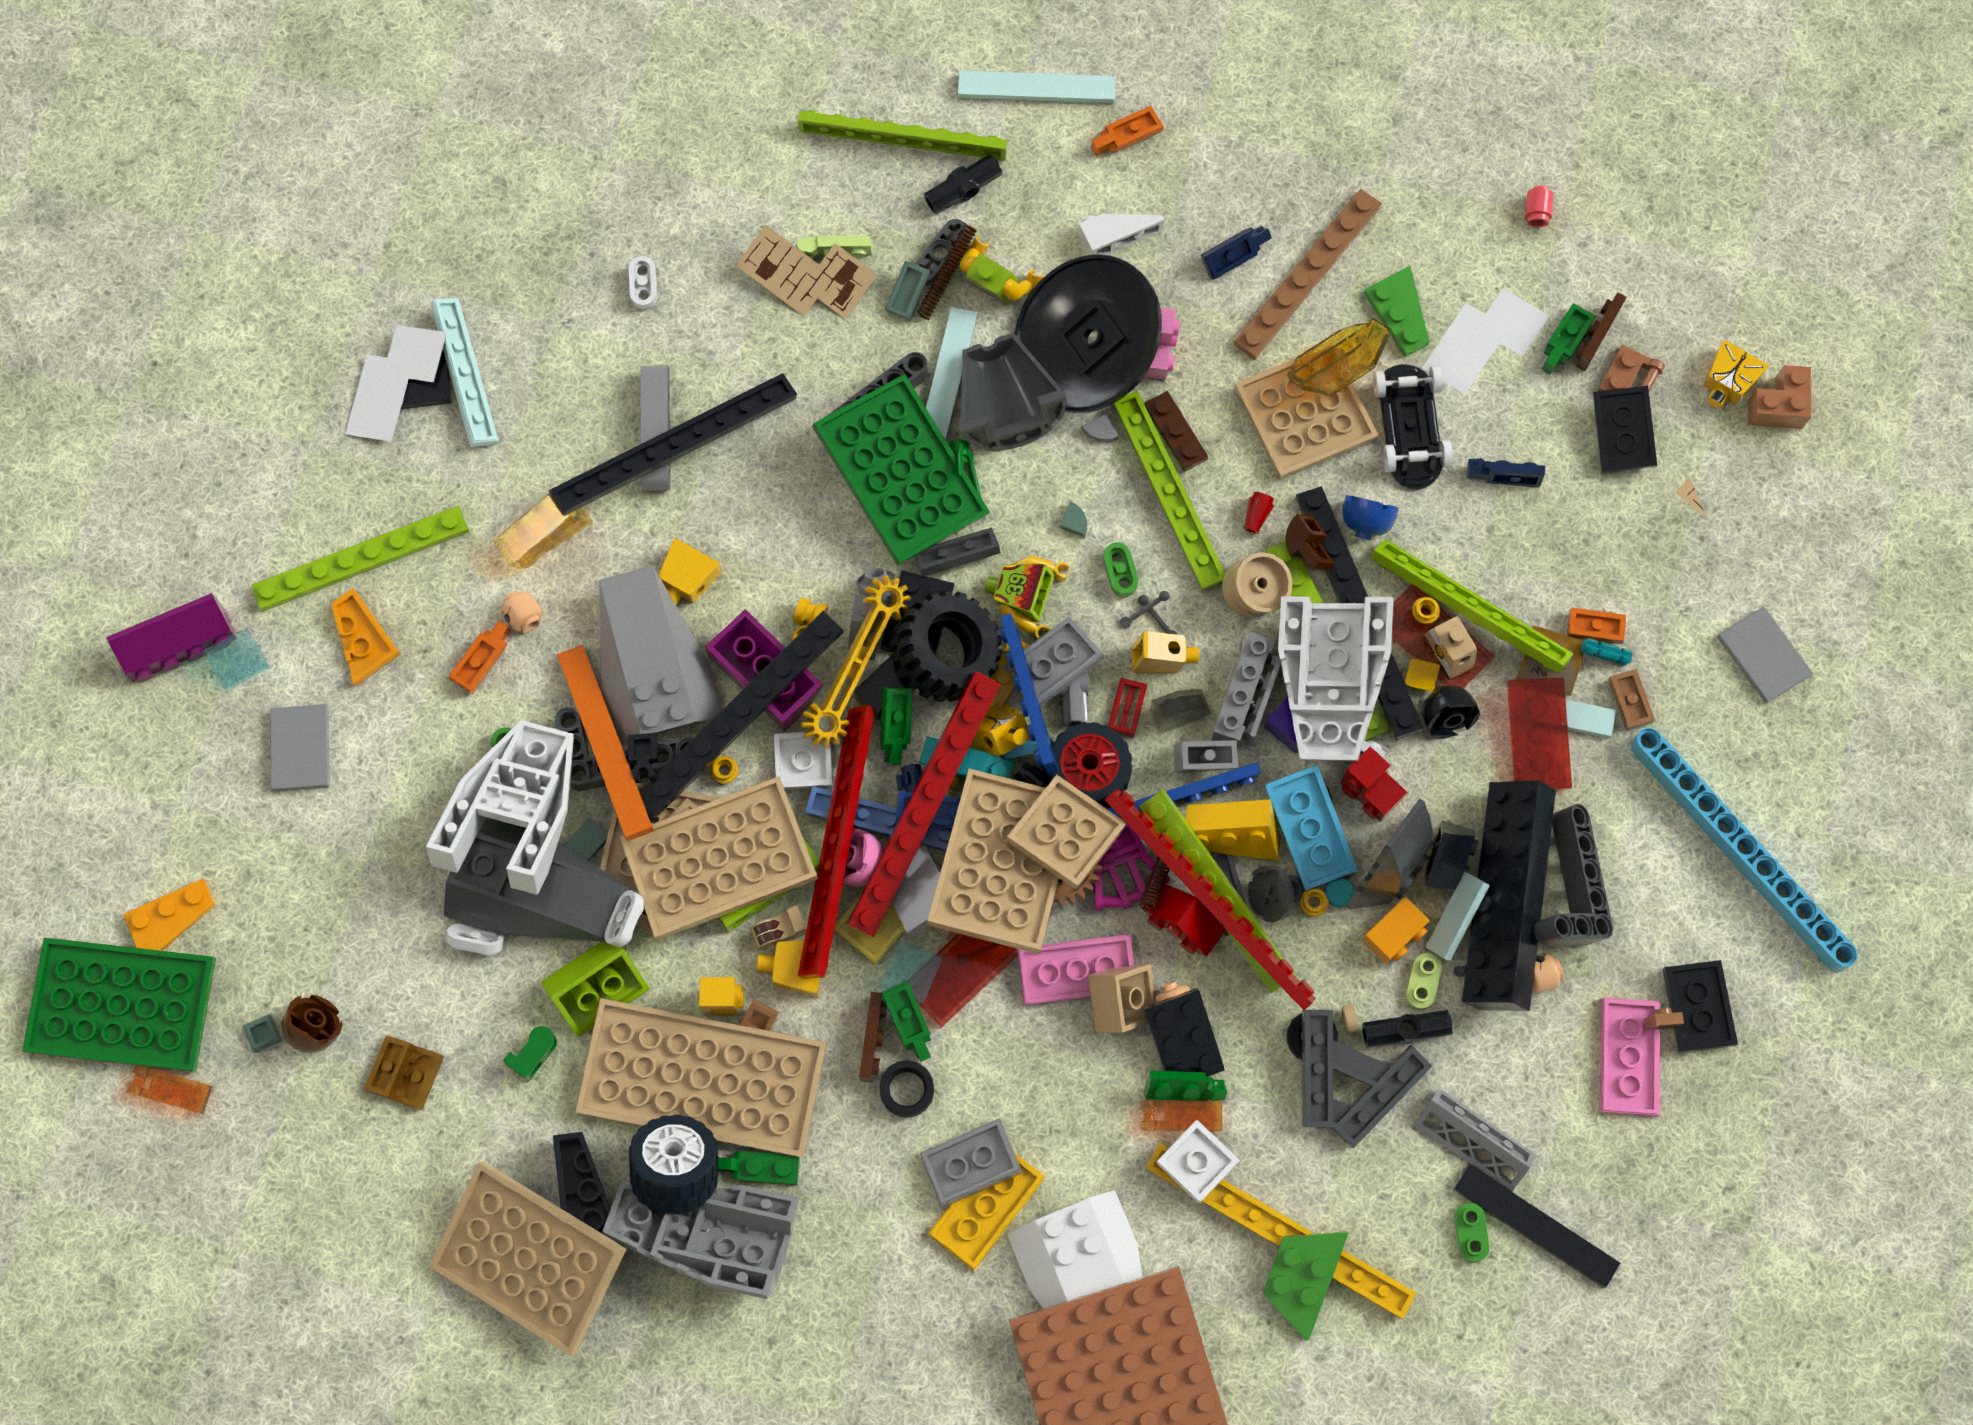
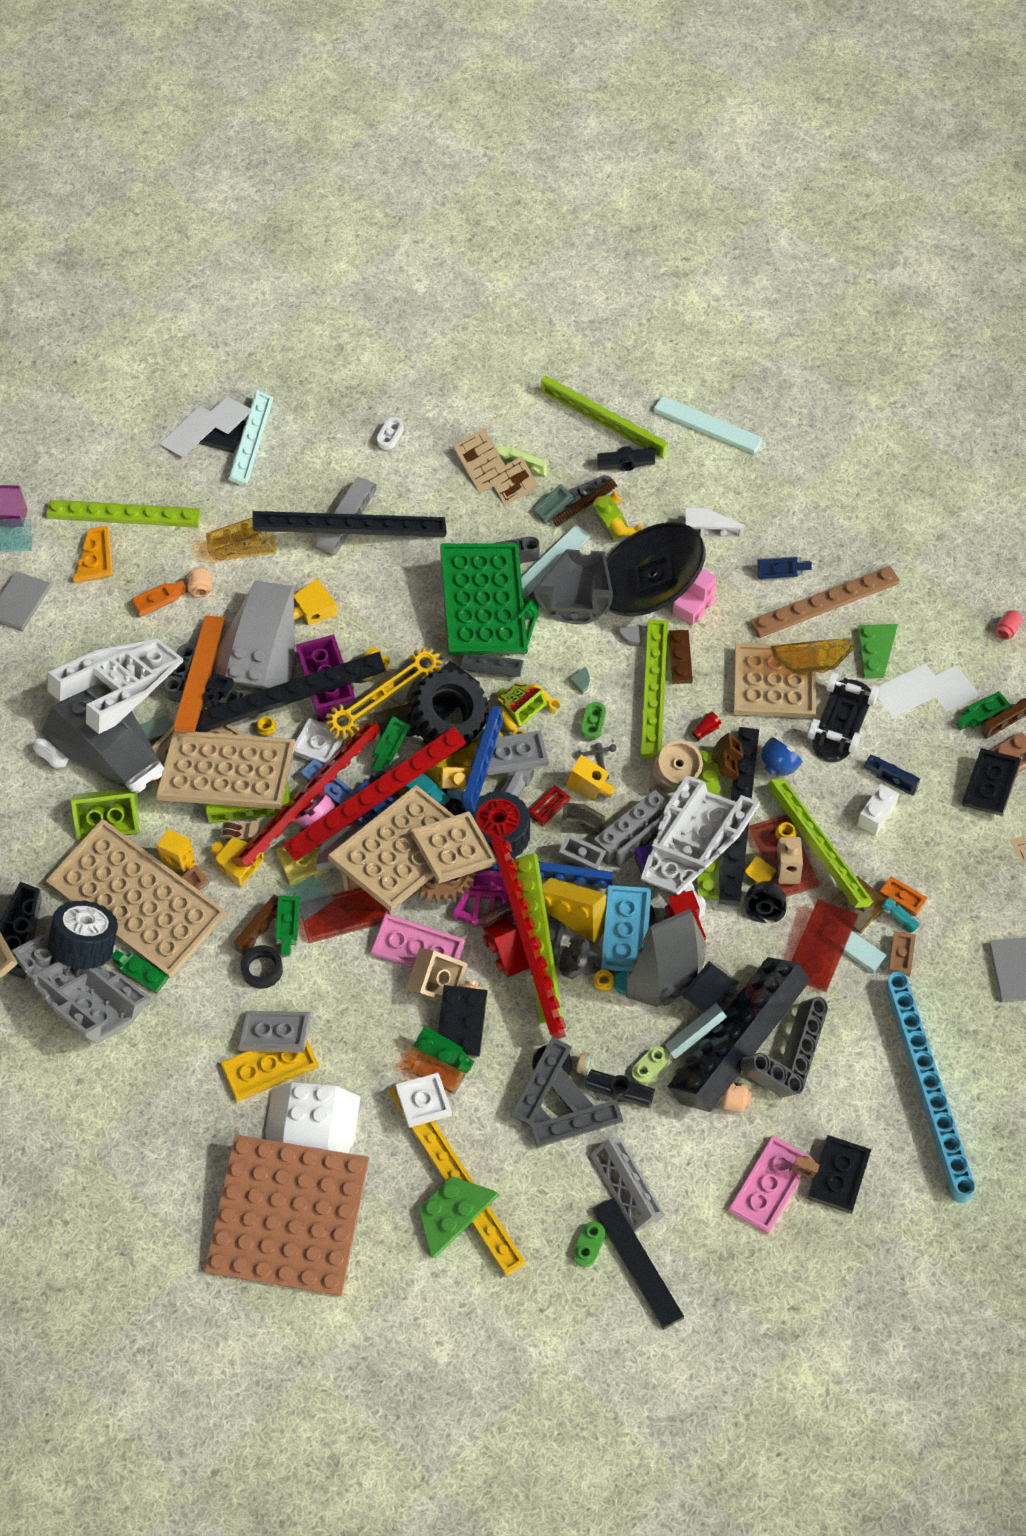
camera: 30 degrees right, 15 degrees down
(534, 1053) = (43, 835): green leg -> none
(1127, 131) = (751, 471): orange hinge -> none
(1396, 930) = (649, 1023): light orange brick -> none
(1514, 528) = (878, 809): none -> white brick

